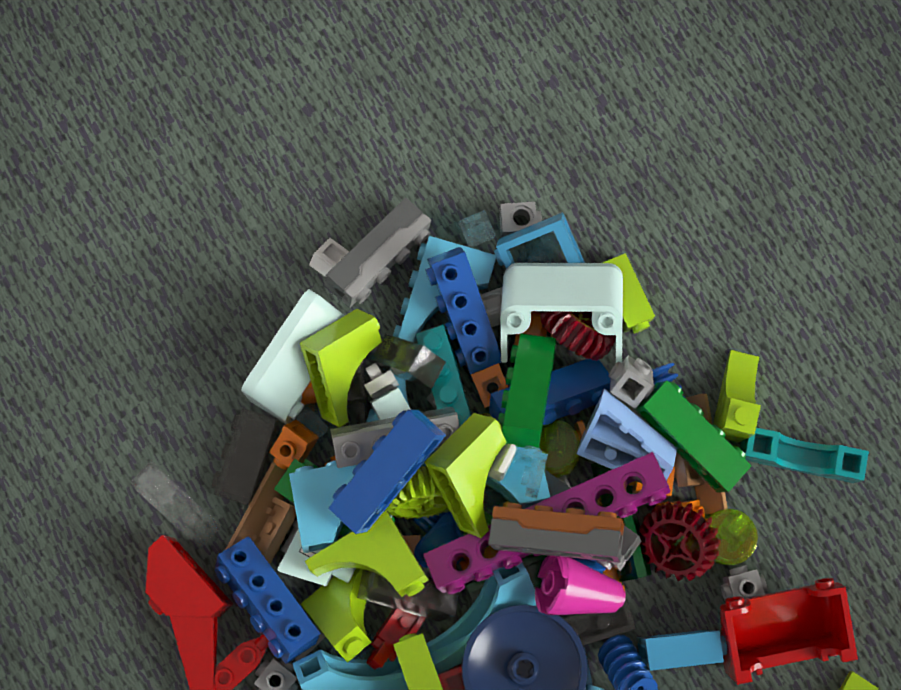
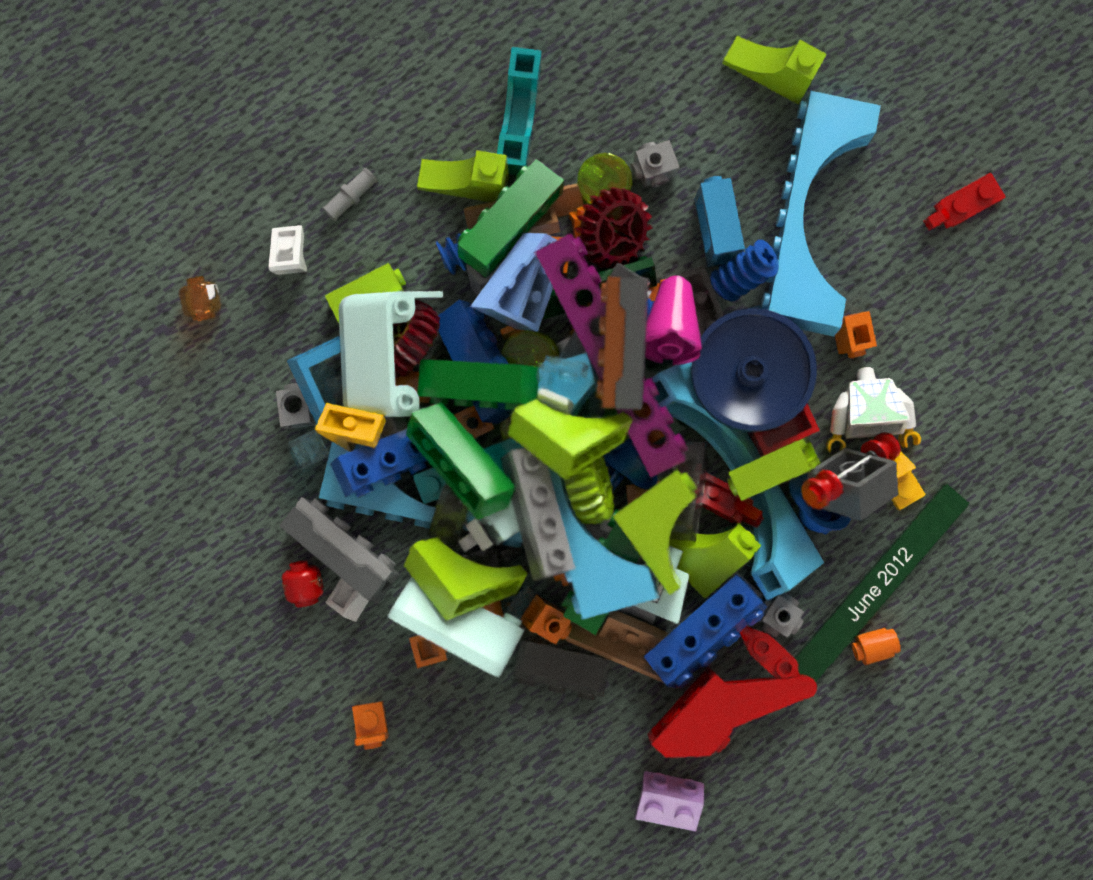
camera: 85 degrees left, 5 degrees up
(106, 554) = (670, 801): none -> lavender bracket
(175, 504) = (613, 736): clear slope -> none
(210, 272) = (370, 724): none -> orange bracket
(270, 325) = (426, 652): none -> orange brick
(348, 216) = (302, 584): none -> red head
(386, 470) = (576, 516): blue brick -> none
(452, 367) = (460, 460): none -> green brick
(494, 266) = (350, 426): none -> yellow slope
(629, 137) = (200, 299): none -> clear orange head
(631, 381) = (460, 280): light grey brick -> none
(672, 221) = (287, 250): none -> white slope
(726, 284) = (349, 194): none -> light grey pin
(786, 628) = (691, 119): red windscreen -> none

